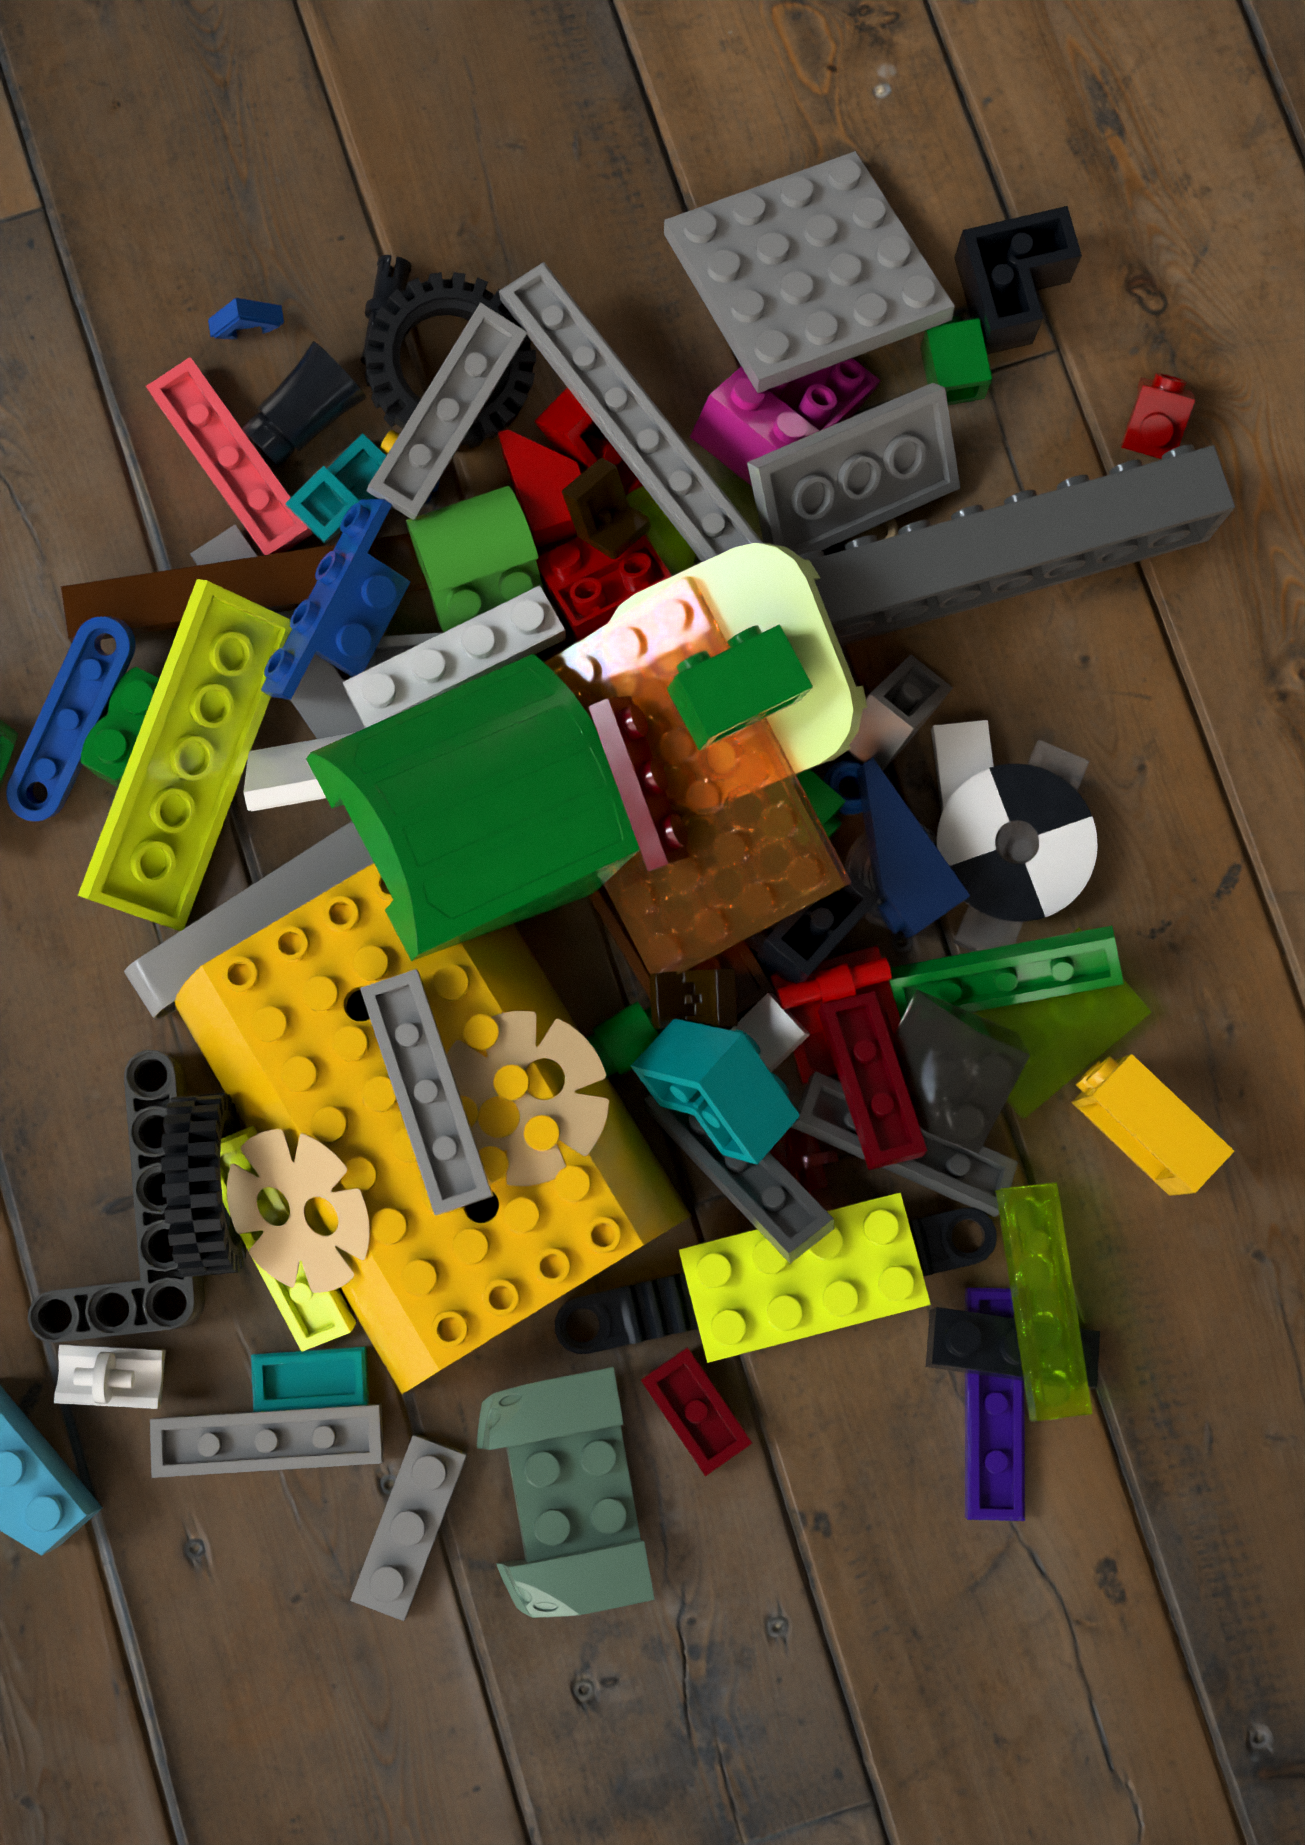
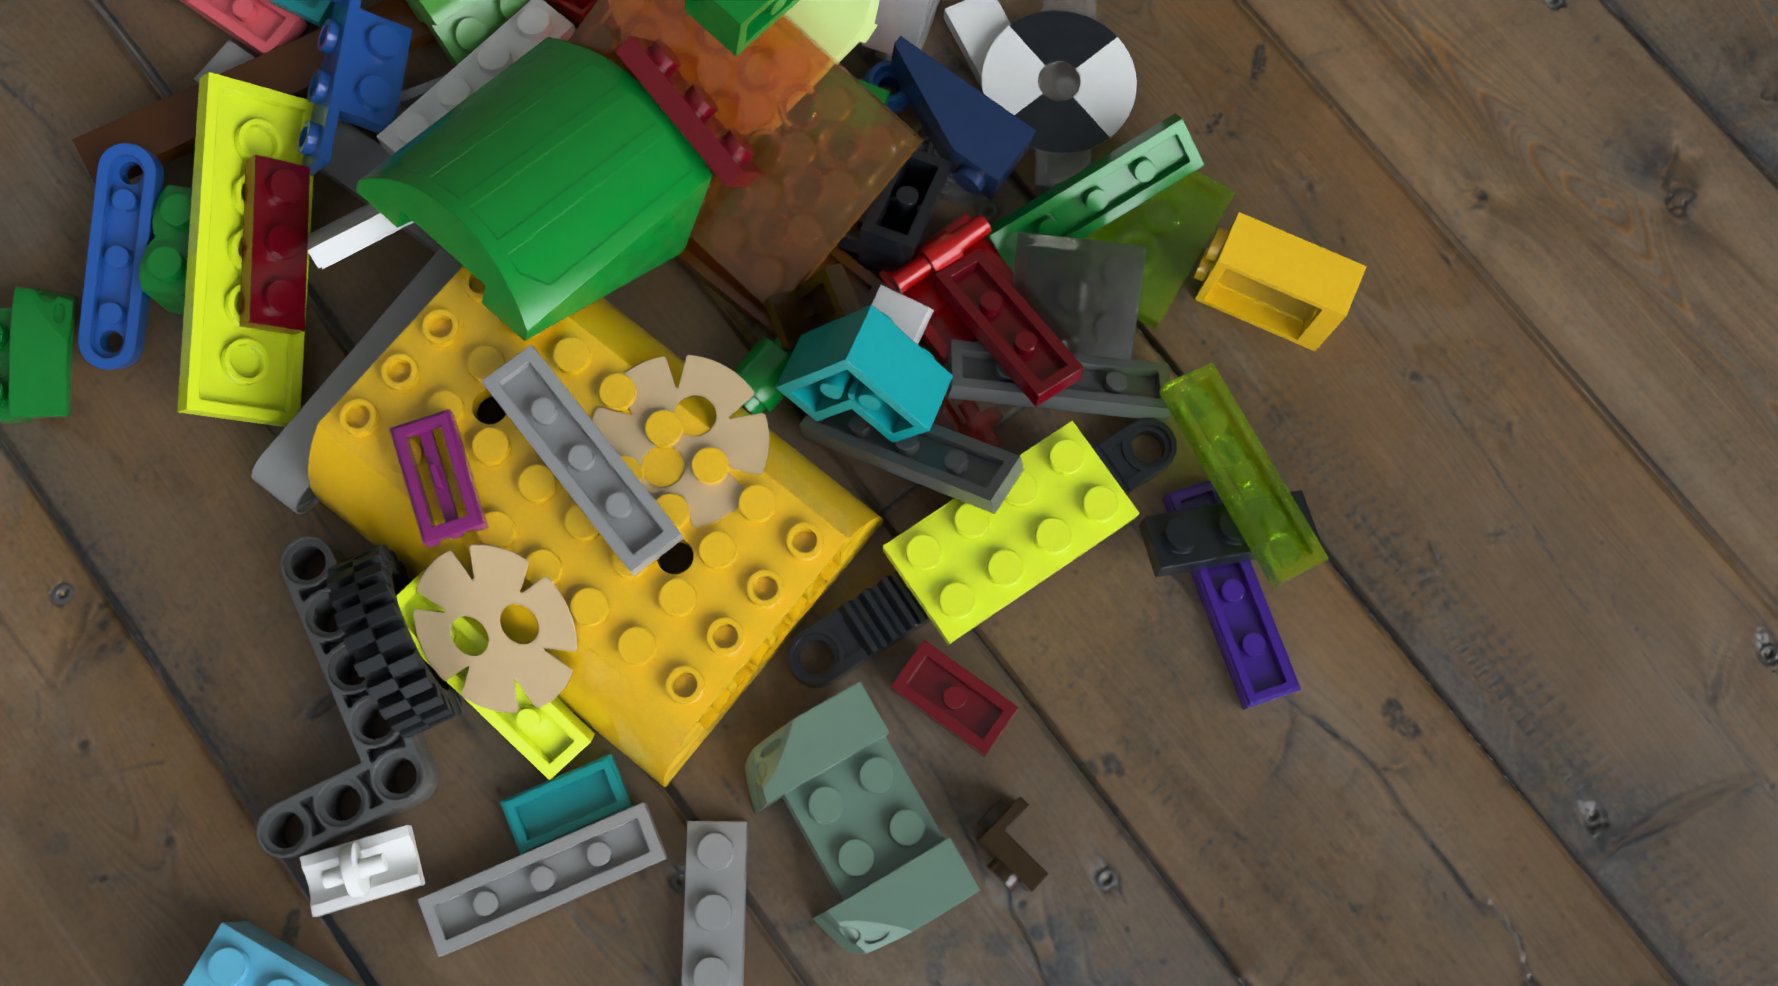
camera: 25 degrees left, 5 degrees down
(215, 760) = (274, 245): none -> dark red plate
(292, 1112) = (454, 526): none -> magenta tile
(692, 1581) = (1010, 861): none -> dark brown bracket

